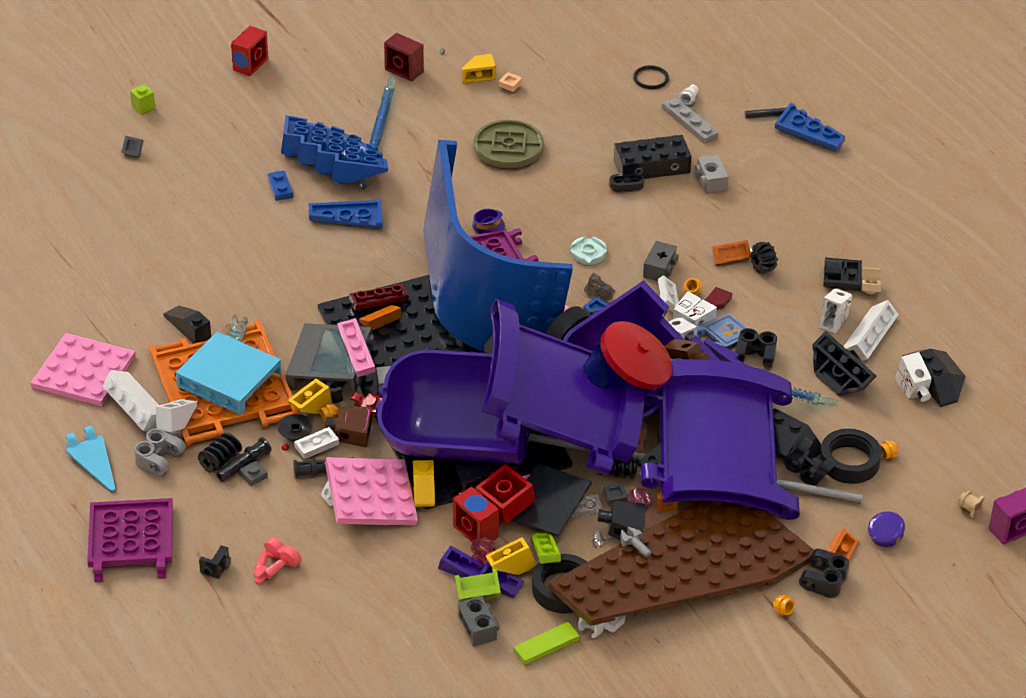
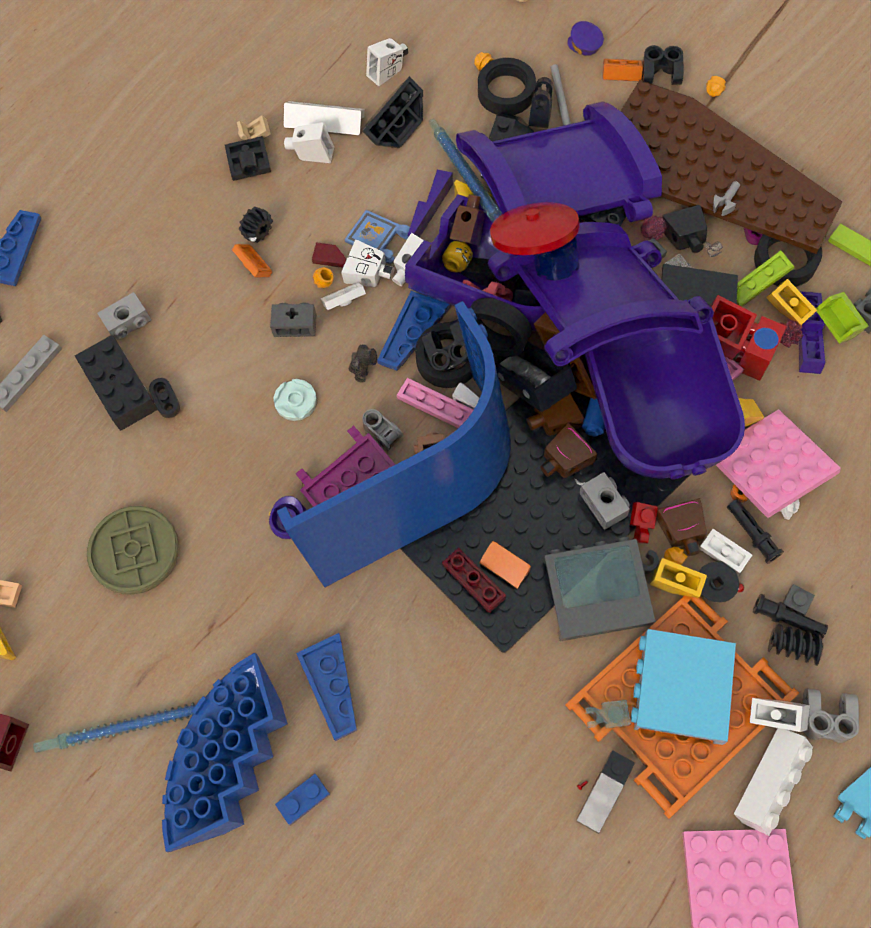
camera: 105 degrees left, 25 degrees up
(356, 347) = (594, 550): bright pink plate -> none
(764, 344) = (385, 189): black piece -> none
(945, 376) = (351, 54): black wedge -> none

